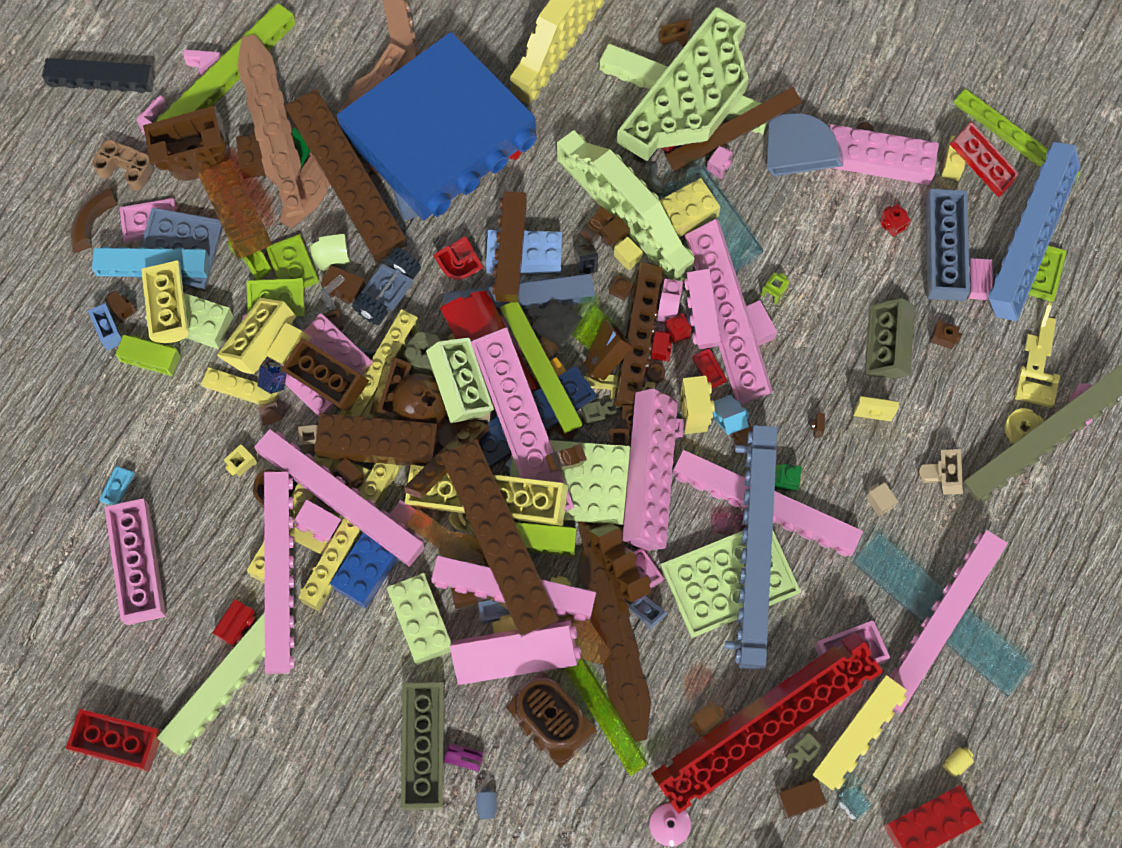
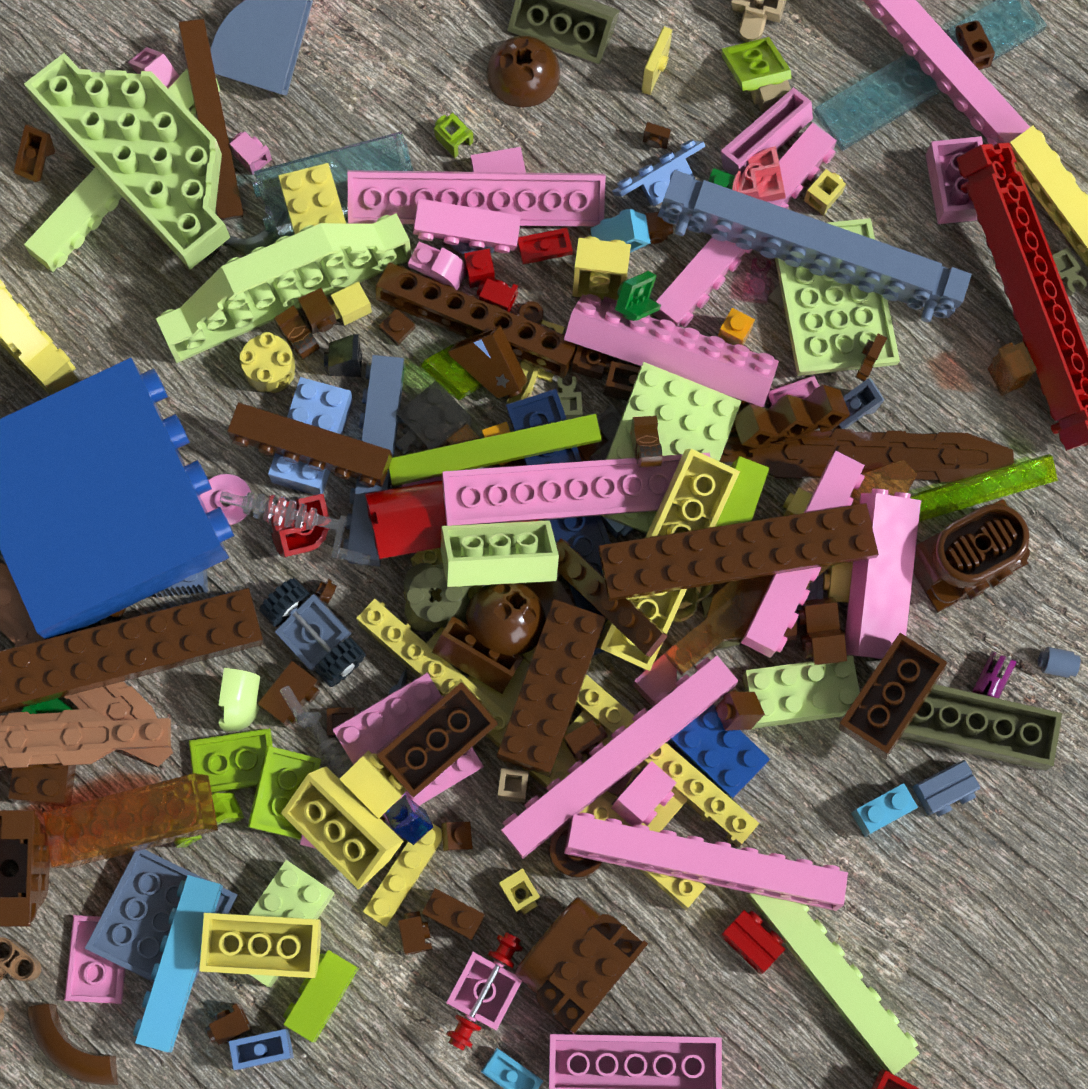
camera: 80 degrees left, 5 degrees up
(166, 452) = (484, 991): none -> bright pink brick
(196, 508) = (578, 962): none -> reddish brown brick
(198, 402) = (414, 934): none -> reddish brown brick
(215, 423) = (453, 914): none -> reddish brown piece
(346, 695) = (884, 810): none -> medium azure brick
(372, 738) = (946, 788): none -> sand blue brick
(391, 572) = (739, 710): none -> reddish brown brick
(418, 289) = (325, 591): none -> reddish brown plate
(422, 674) = (892, 695): none -> reddish brown brick
(461, 252) = (290, 513): none -> clear piece
(463, 205) = (229, 484): none -> bright pink dish
(464, 622) = (822, 635): none -> reddish brown brick
(569, 212) = (268, 363): none -> light yellow brick
(679, 432) = (635, 295): none -> green bracket
(682, 513) = (736, 327): none -> light orange brick
(689, 611) = (871, 351): none -> reddish brown plate
(761, 87) = (157, 63): none -> bright pink slope
(789, 439) = (656, 178): none -> light blue bracket
(802, 502) = (761, 177): none -> coral brick
(812, 548) = (816, 194): none -> light yellow brick
(837, 331) = (523, 82): none -> reddish brown piece
(843, 501) = (769, 130): none -> bright pink brick
(897, 479) = (756, 64): none -> lime plate
(967, 639) = (975, 44): none -> reddish brown leg

